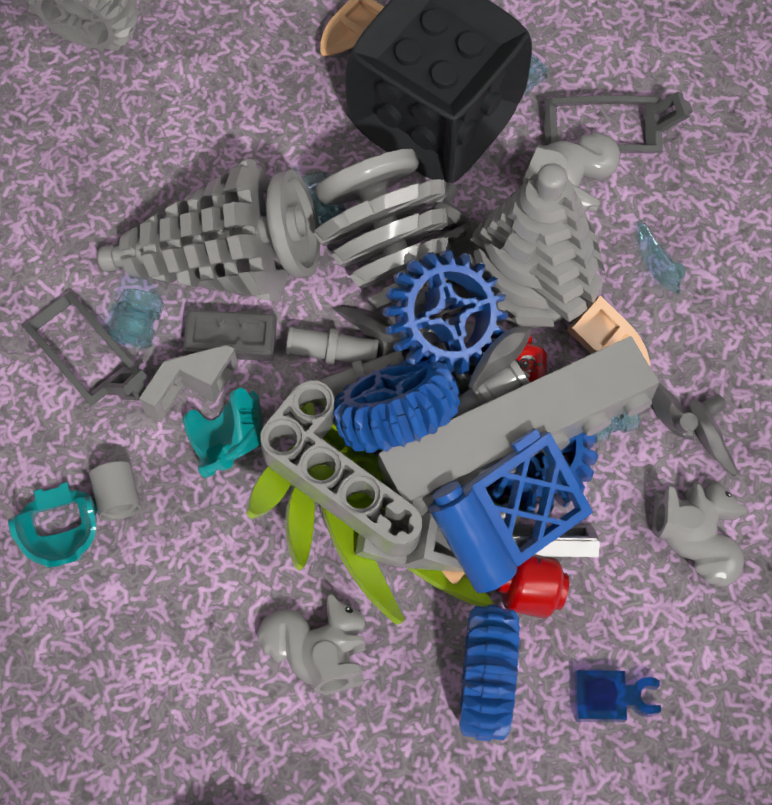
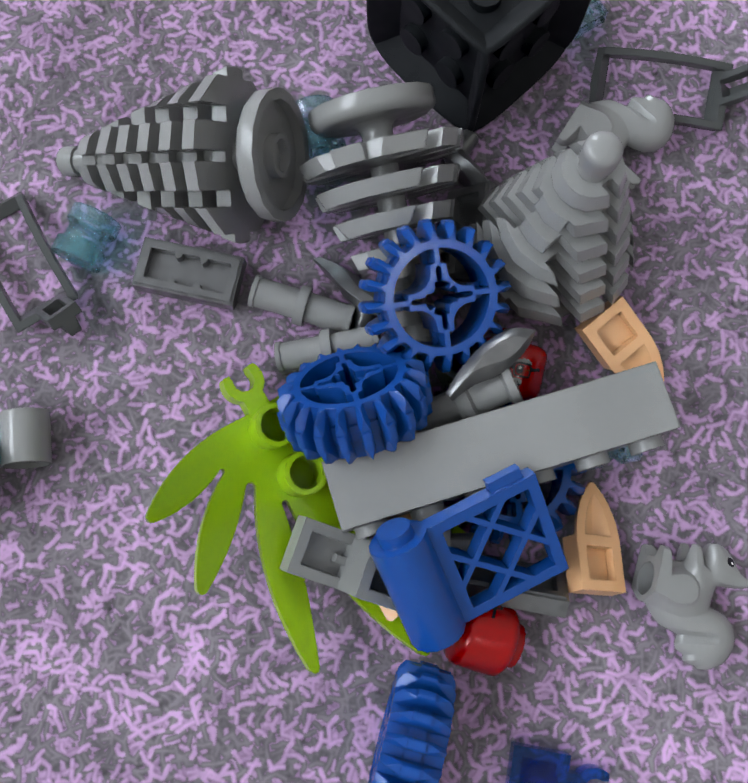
camera: 10 degrees right, 10 degrees up
(202, 372) = (152, 312): light grey slope -> none
(229, 435) = (160, 395): teal helmet -> none
(320, 654) = (215, 674): light grey animal -> none
(347, 477) = (237, 445): light grey beam -> none
(614, 503) = (594, 548): none -> light nougat plate
(659, 261) = (696, 262): clear light blue bar -> none
(673, 413) = (683, 454): flat silver bar -> none
(710, 433) = (718, 476): flat silver bar -> none

